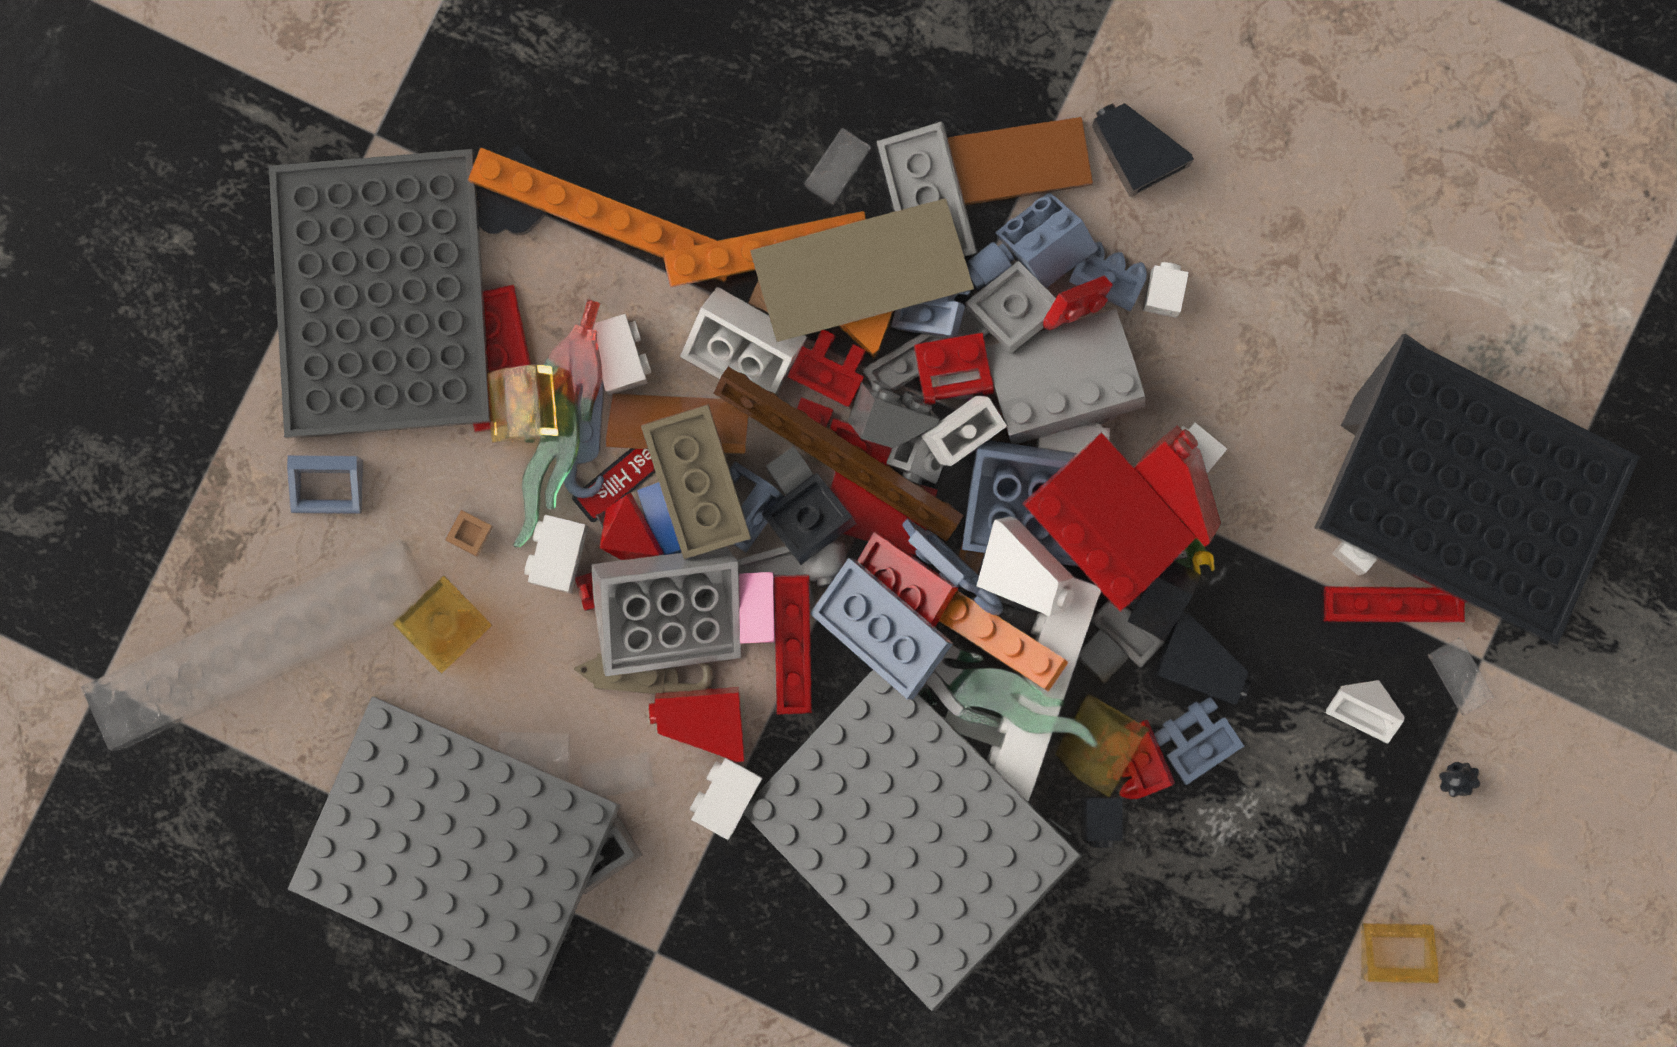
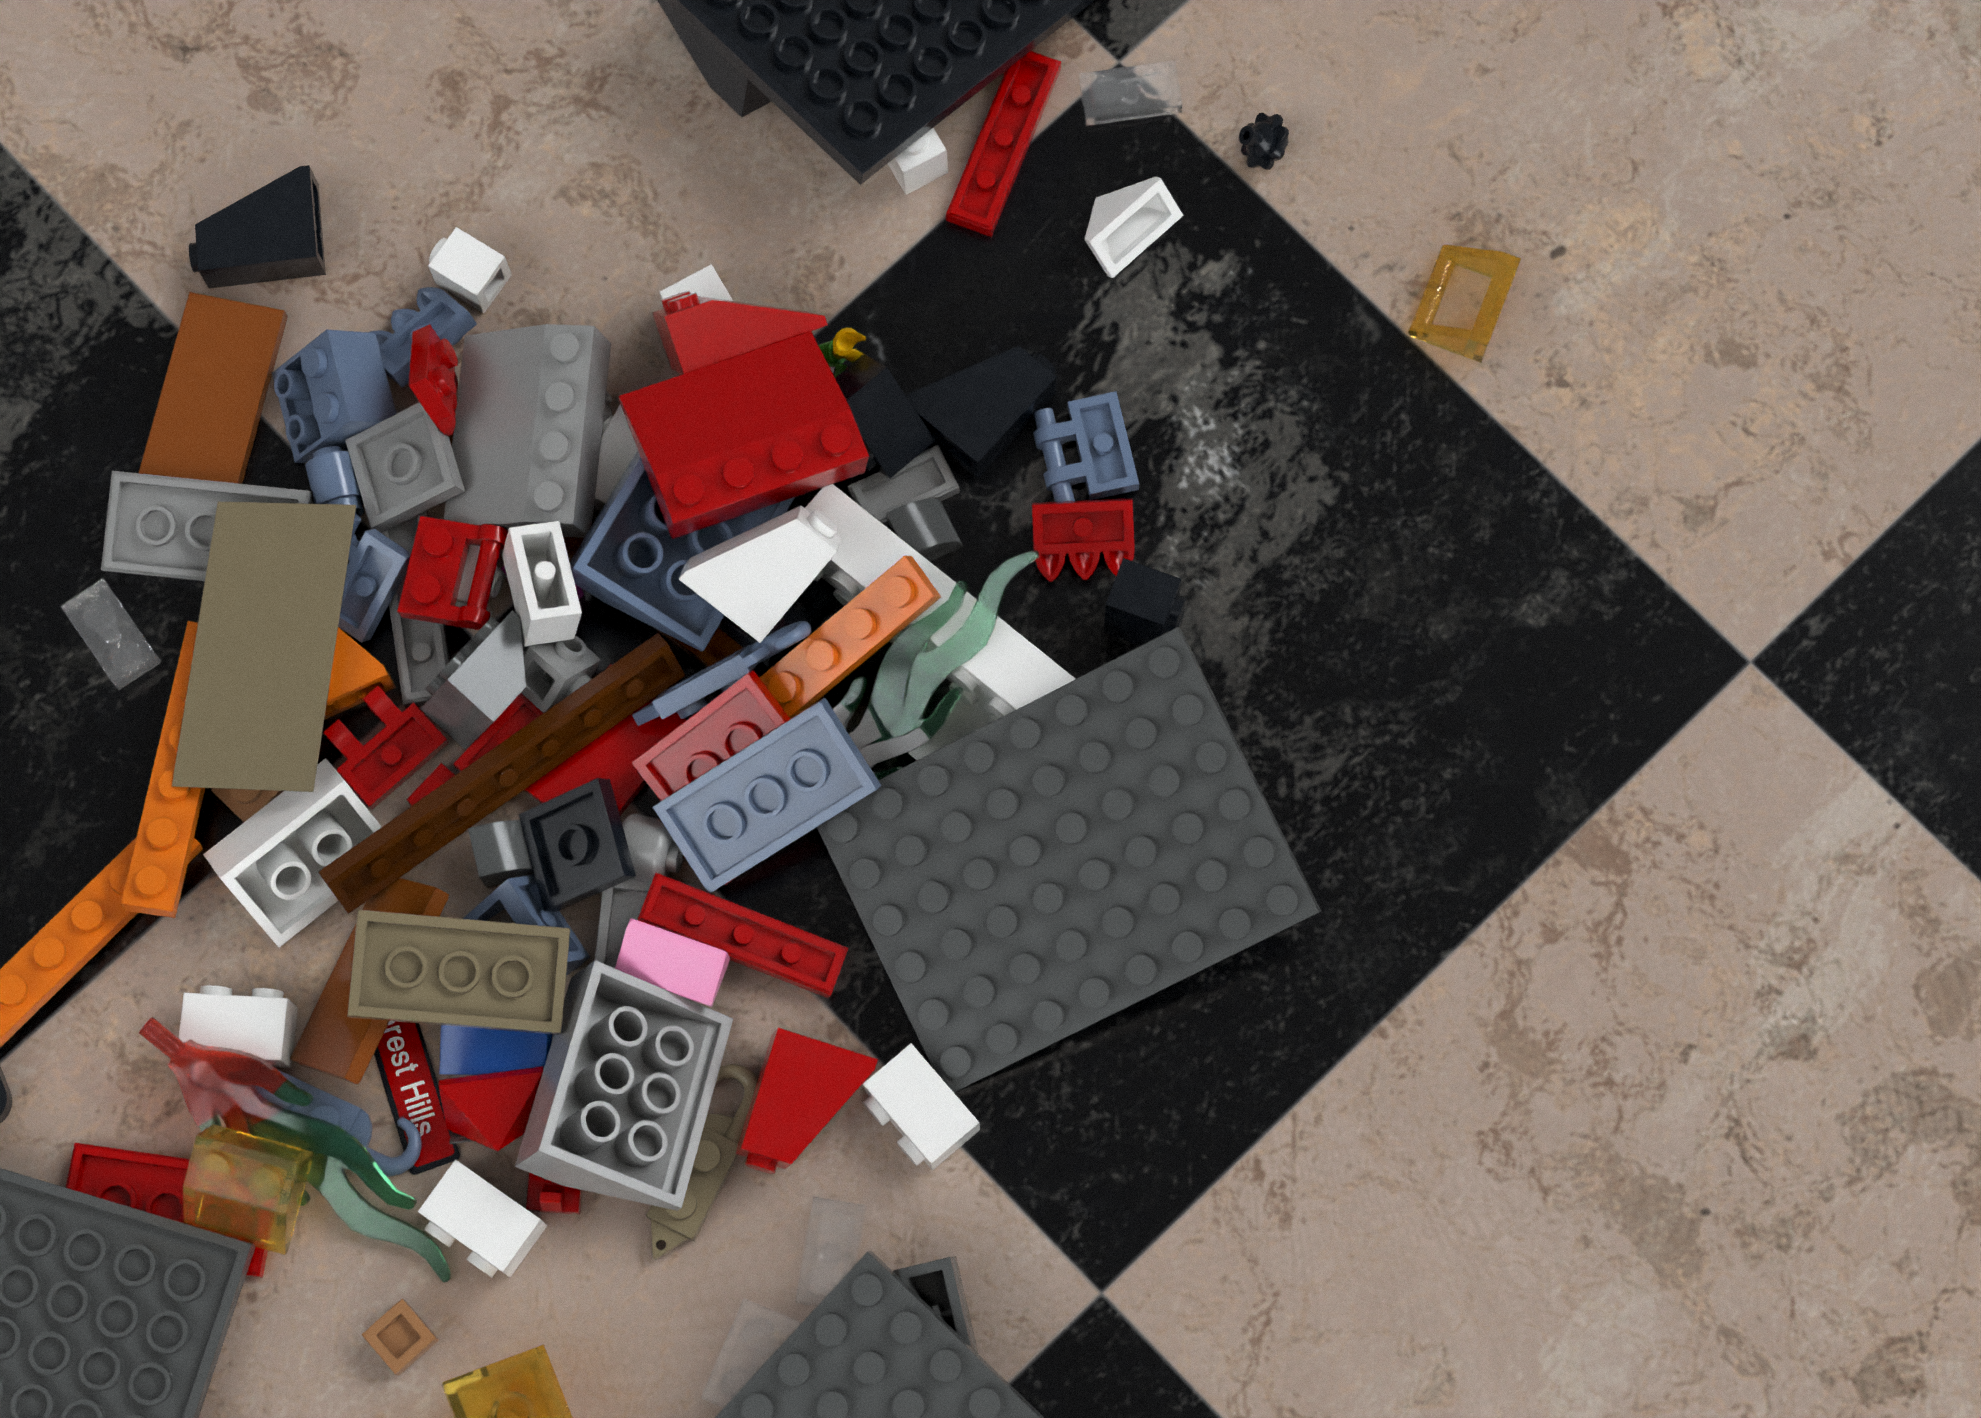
camera: 70 degrees left, 10 degrees down
(1117, 744) = (1054, 584): clear yellow slope -> none

